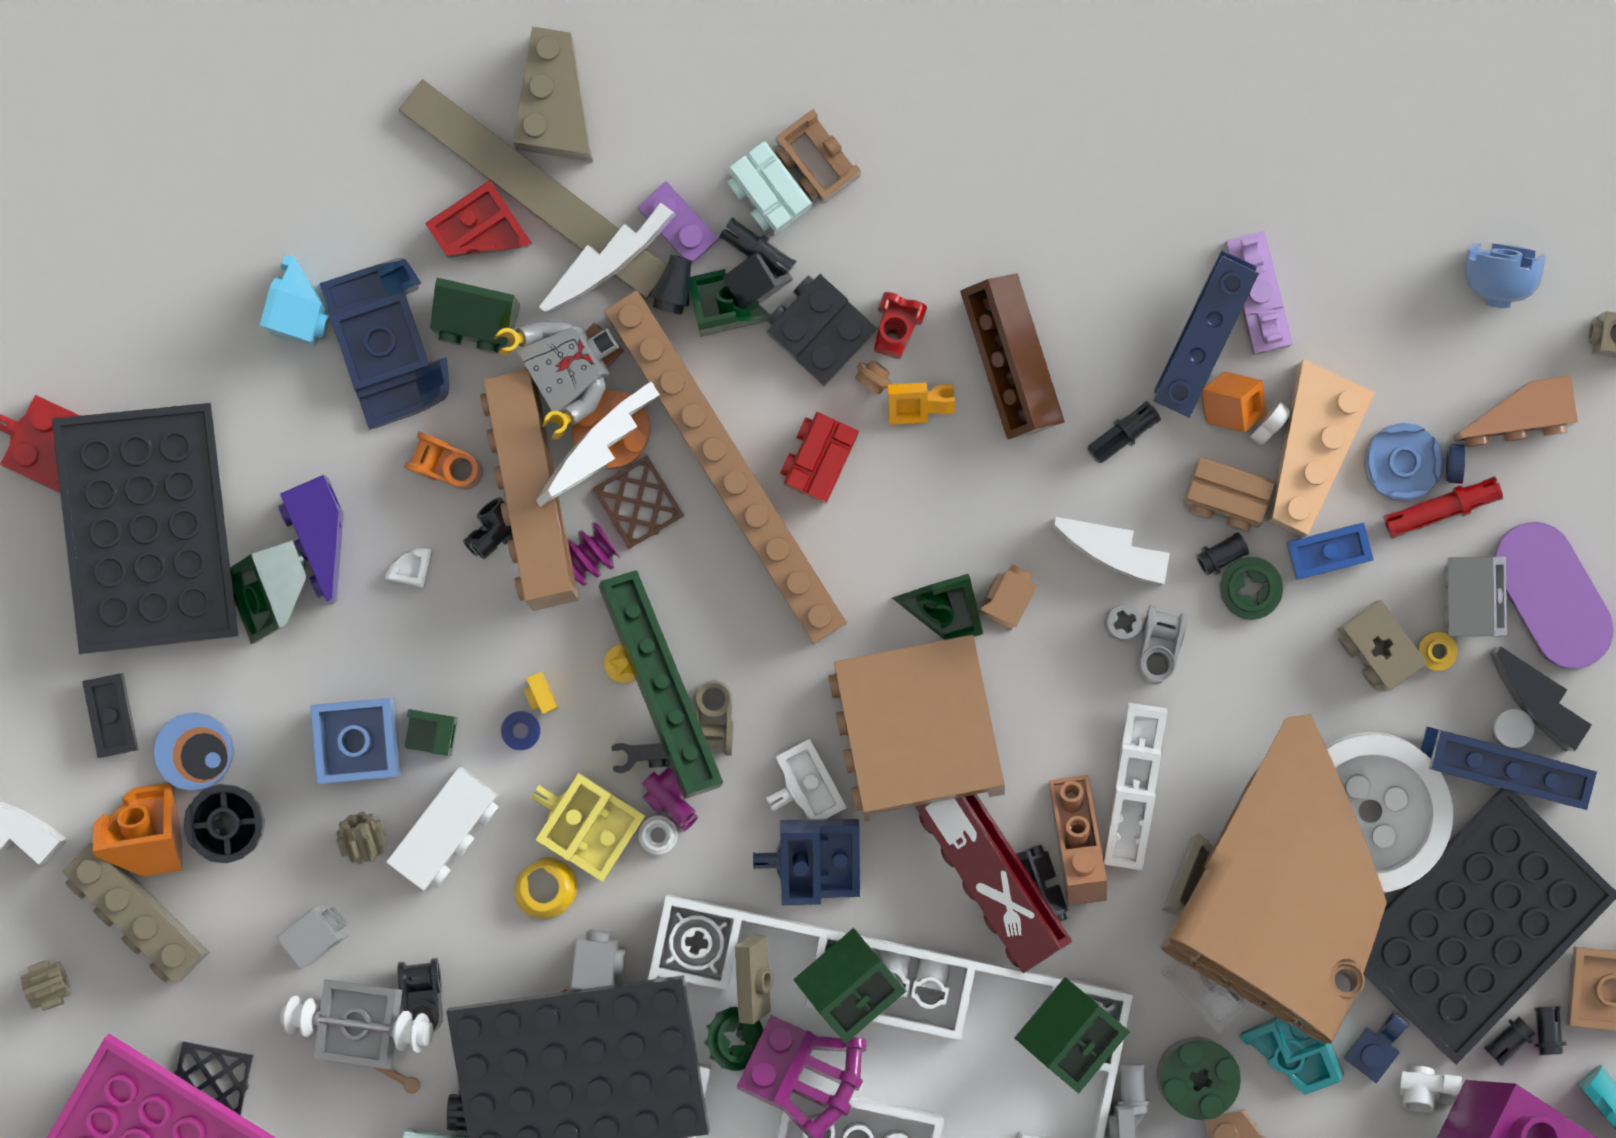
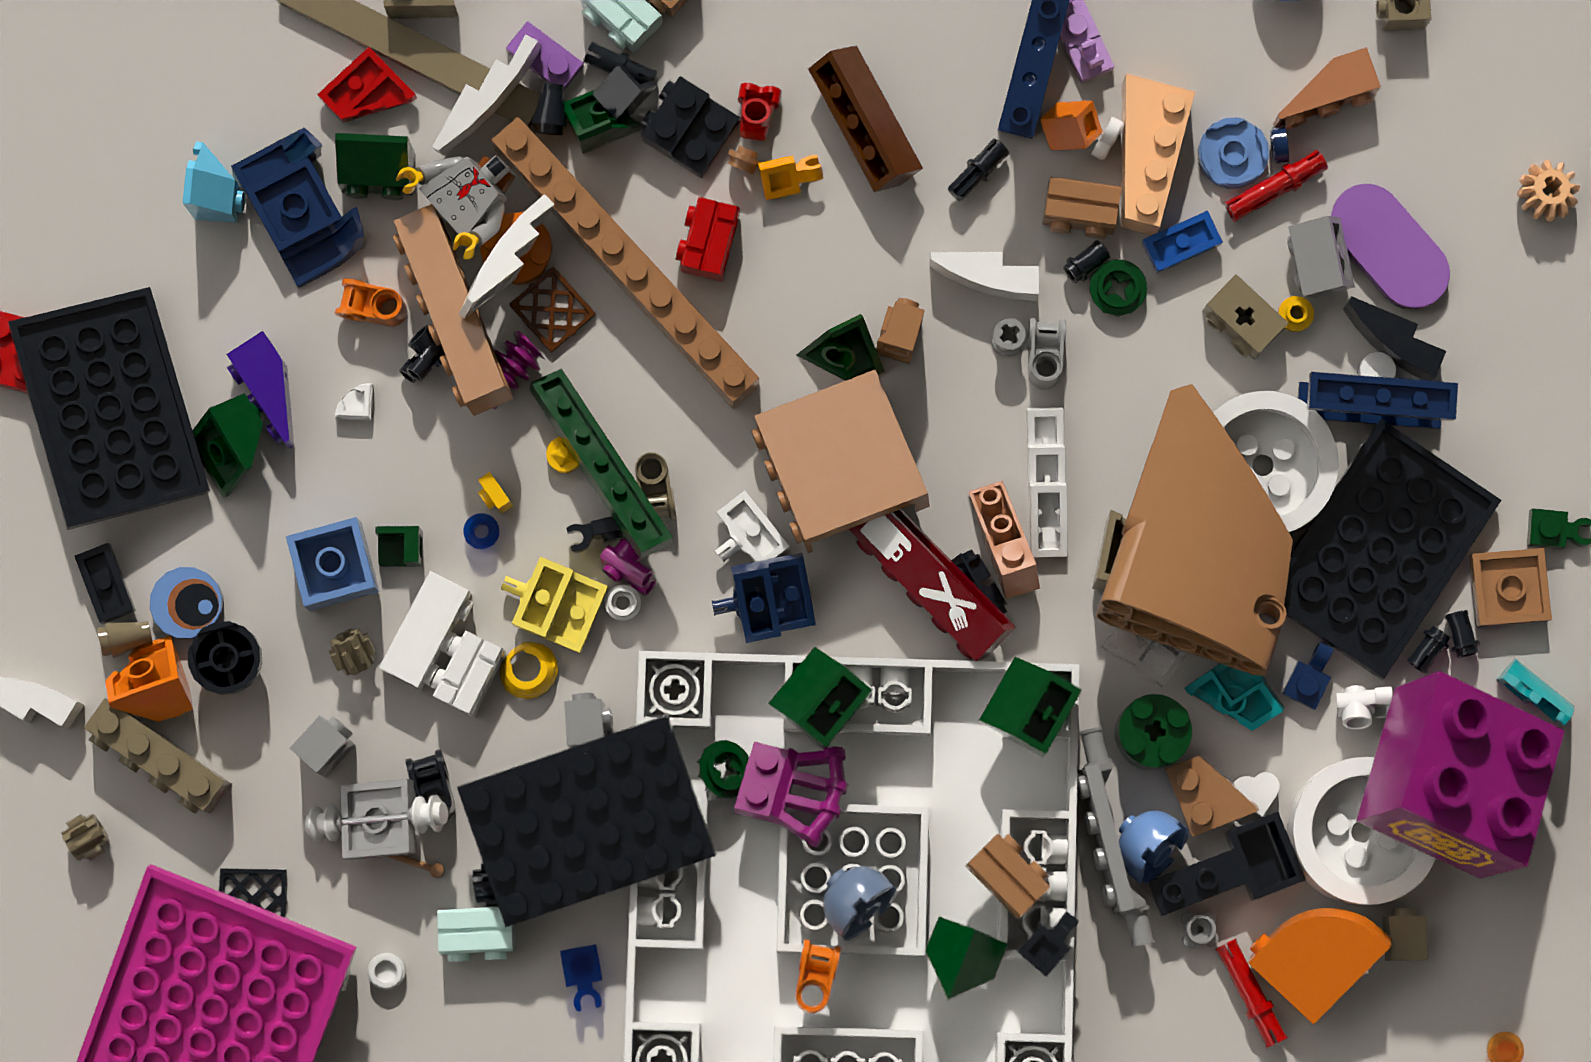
camera: 10 degrees left, 5 degrees down
(119, 777) = (123, 637): none -> dark tan cone
(480, 882) = (468, 672): none -> white brick
(753, 979) = (731, 710): dark tan plate -> none

